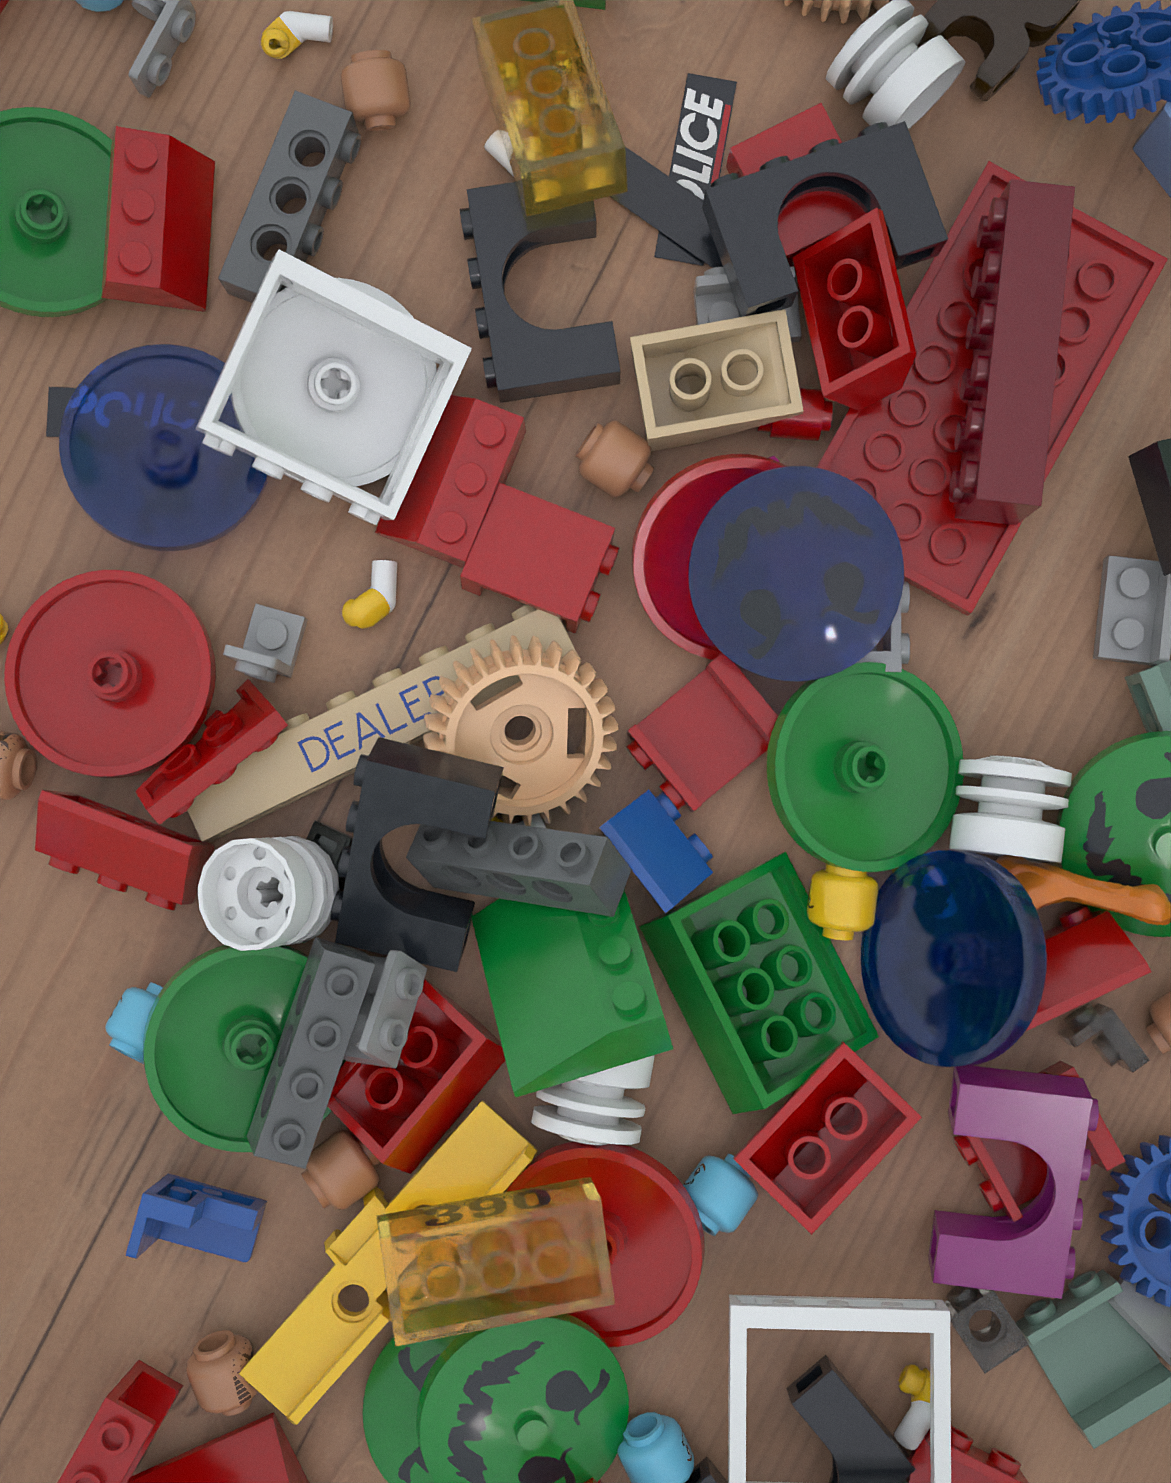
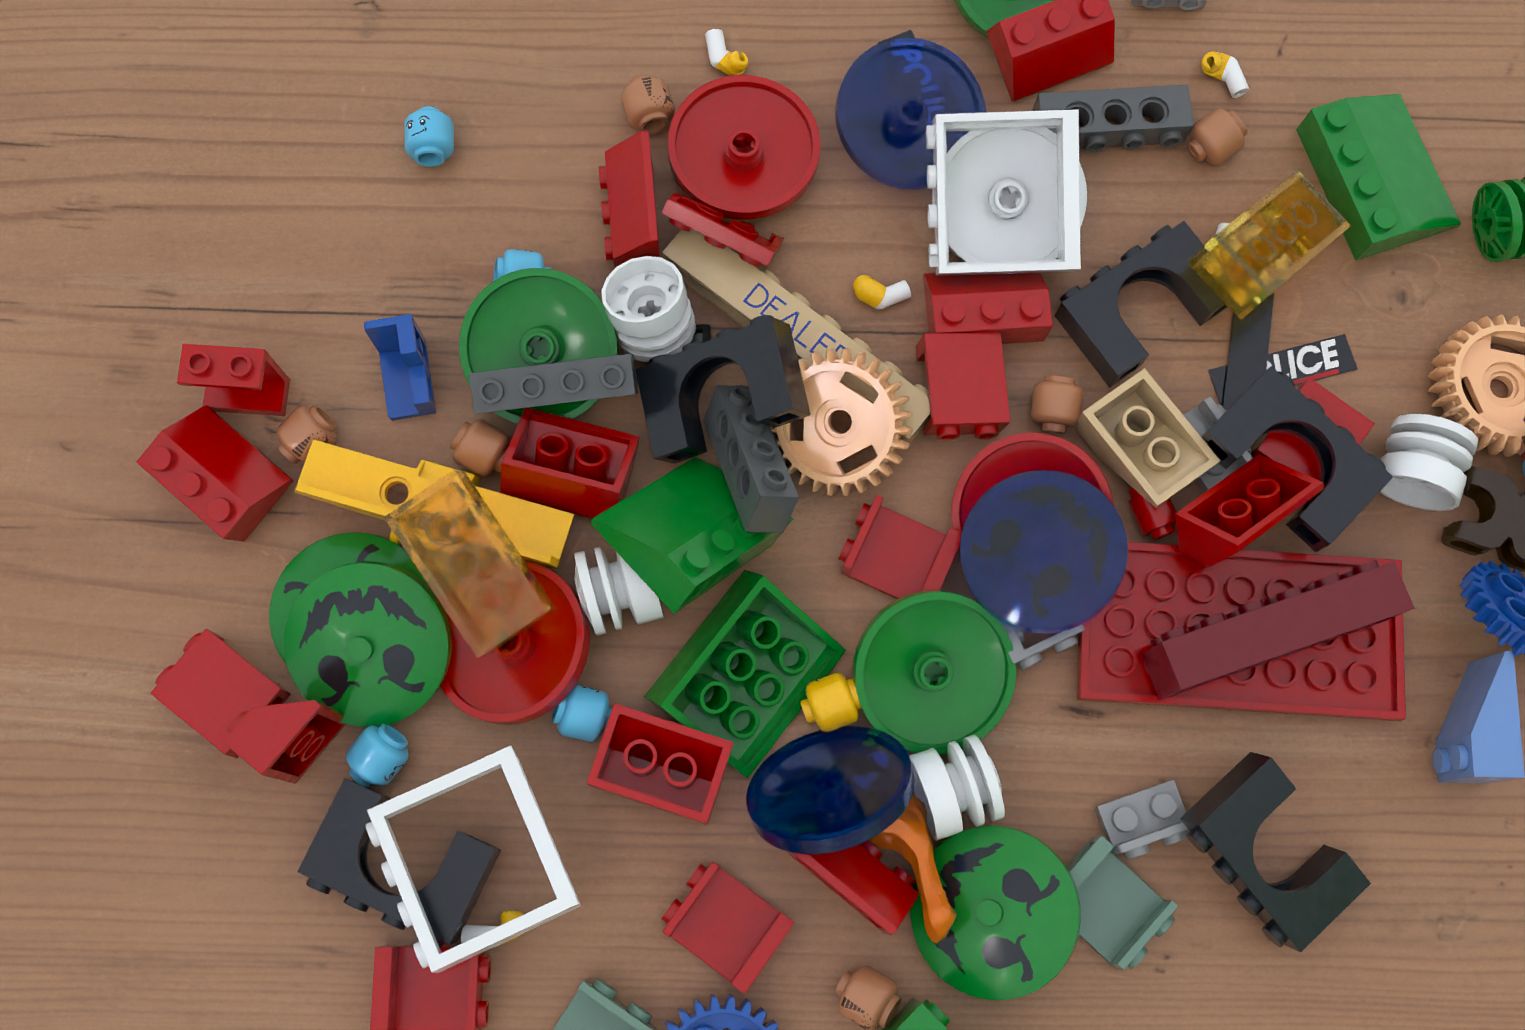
camera: 55 degrees right, 10 degrees down
(269, 645) = (813, 241): light grey bracket -> none
(386, 1010) = (605, 421): light grey bracket -> none
(658, 849) = (804, 552): blue slope -> none
(994, 1342) = (559, 957): clear smoke brick -> none
(1053, 1120) = (748, 918): magenta arch -> none
(1113, 1040) = (827, 948): clear smoke bracket -> none

